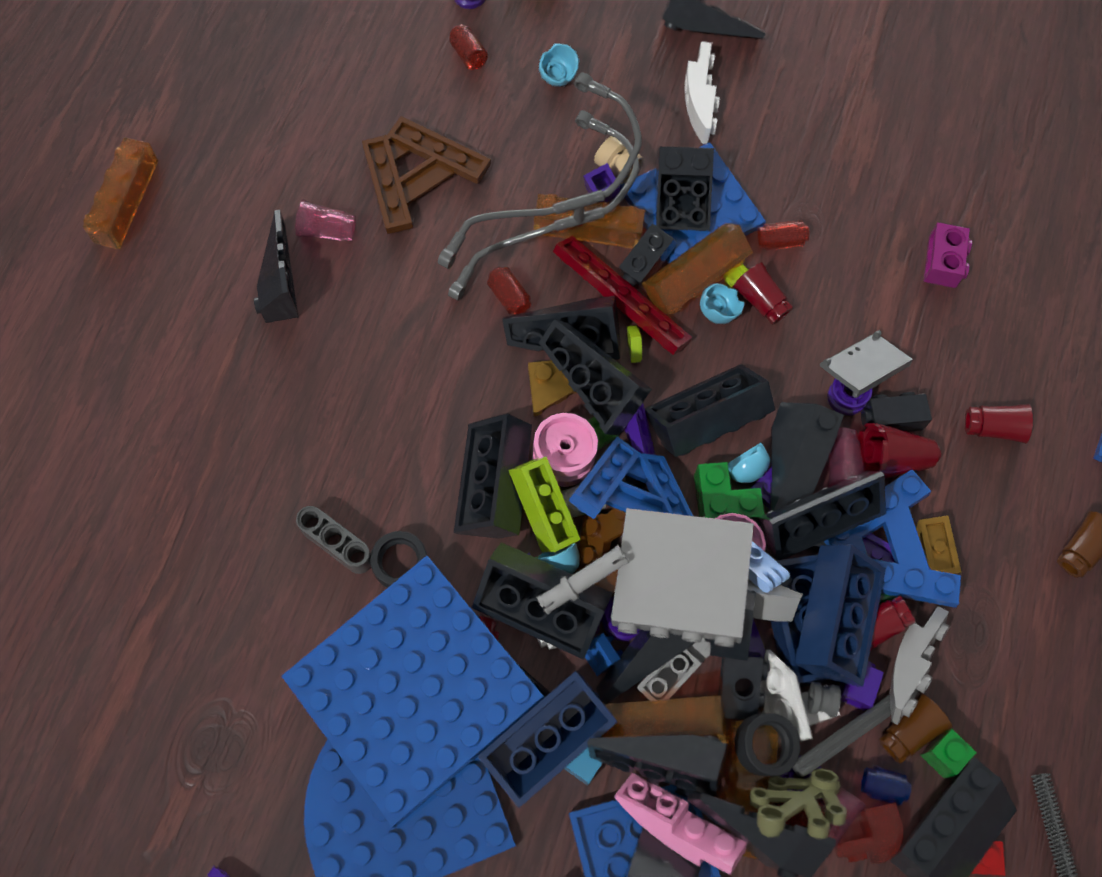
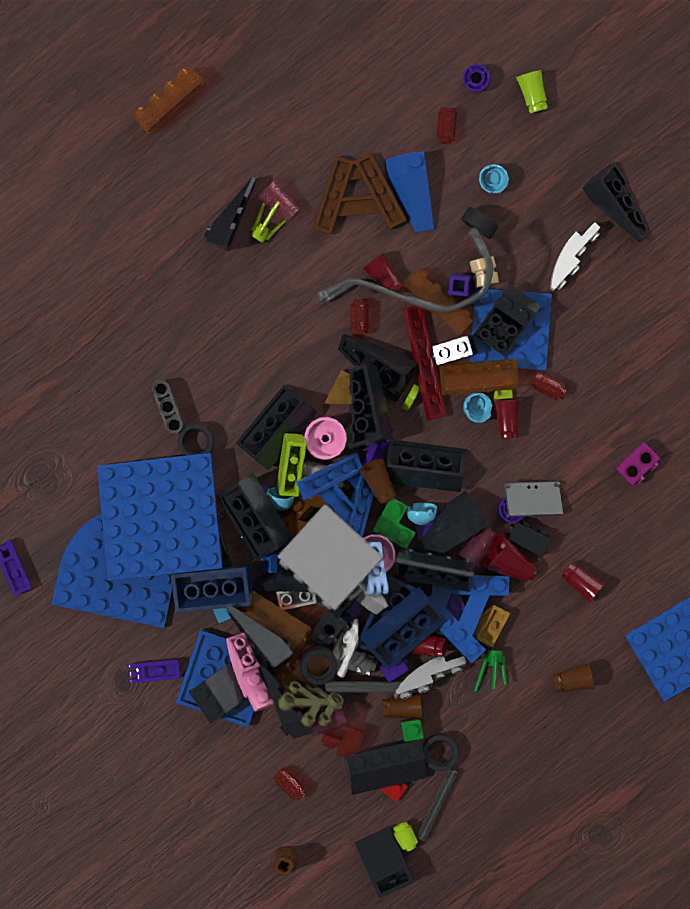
camera: 35 degrees right, 20 degrees up
(325, 270) = (261, 232): none -> lime plant
(468, 120) = (410, 182): none -> blue wedge
(504, 228) = (383, 273): none -> dark red plant
(574, 100) = (478, 220): none -> black tyre
(583, 579) = (268, 526): light grey pin -> none
(668, 451) = (378, 479): none -> reddish brown plant
(885, 785) = (369, 722): clear blue brick -> none
(975, 587) = (494, 659): none -> green plant
(1025, 747) = (453, 759): none -> black tyre

